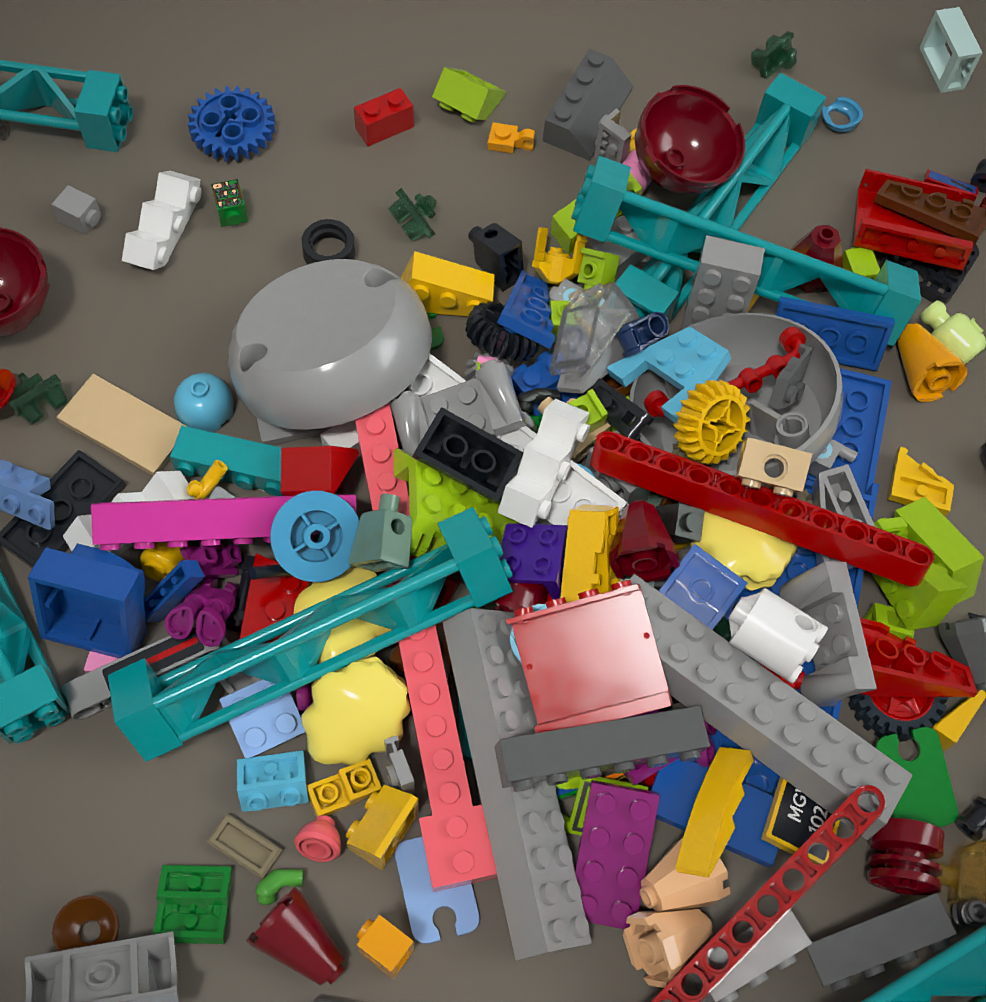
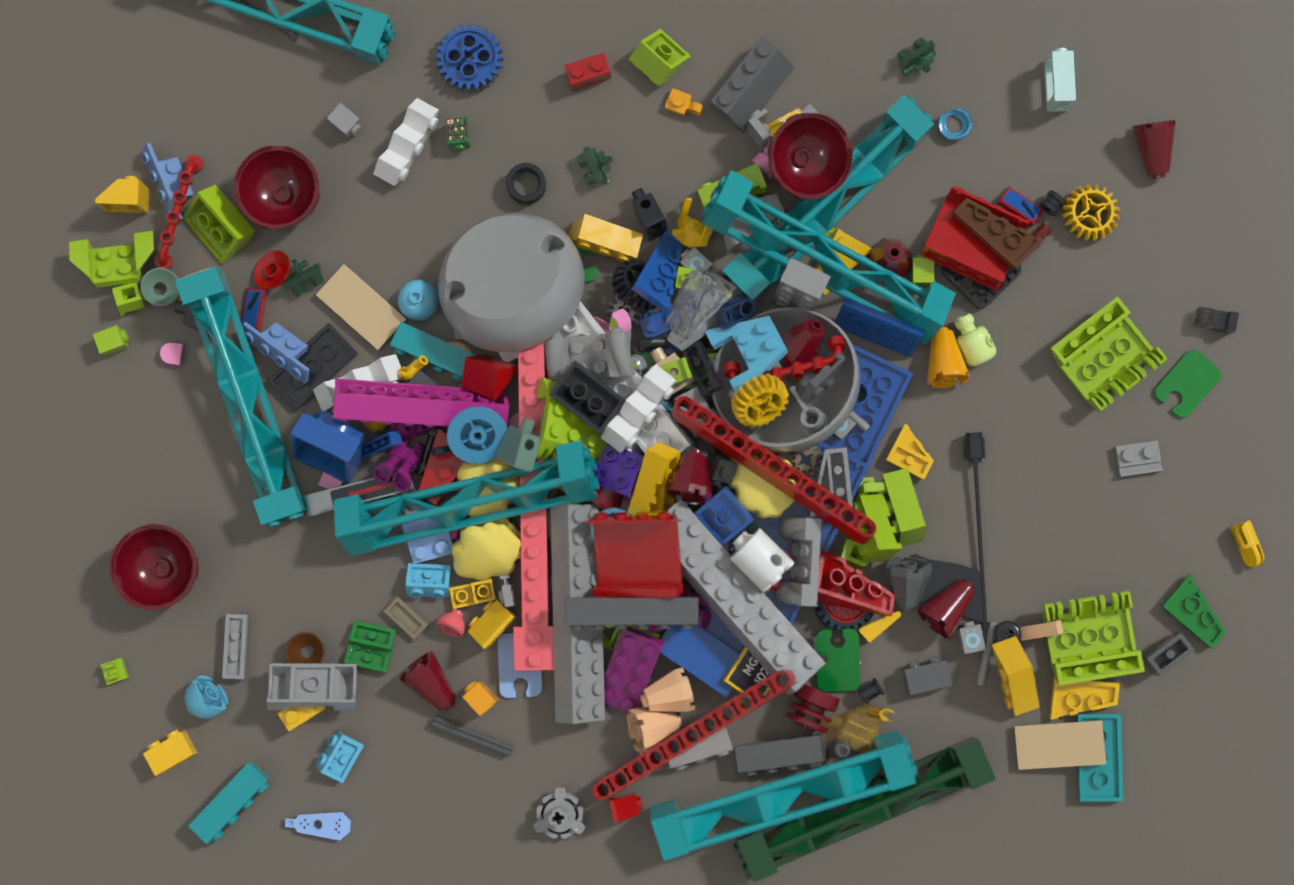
camera: 20 degrees right, 20 degrees up
(275, 881) = (421, 643): bright green arm -> none
(597, 267) = (718, 247): lime brick -> none
(712, 812) = (694, 659): yellow slope -> none
(747, 343) = (803, 342): none -> dark red cone
(792, 463) = (779, 438): tan brick -> none

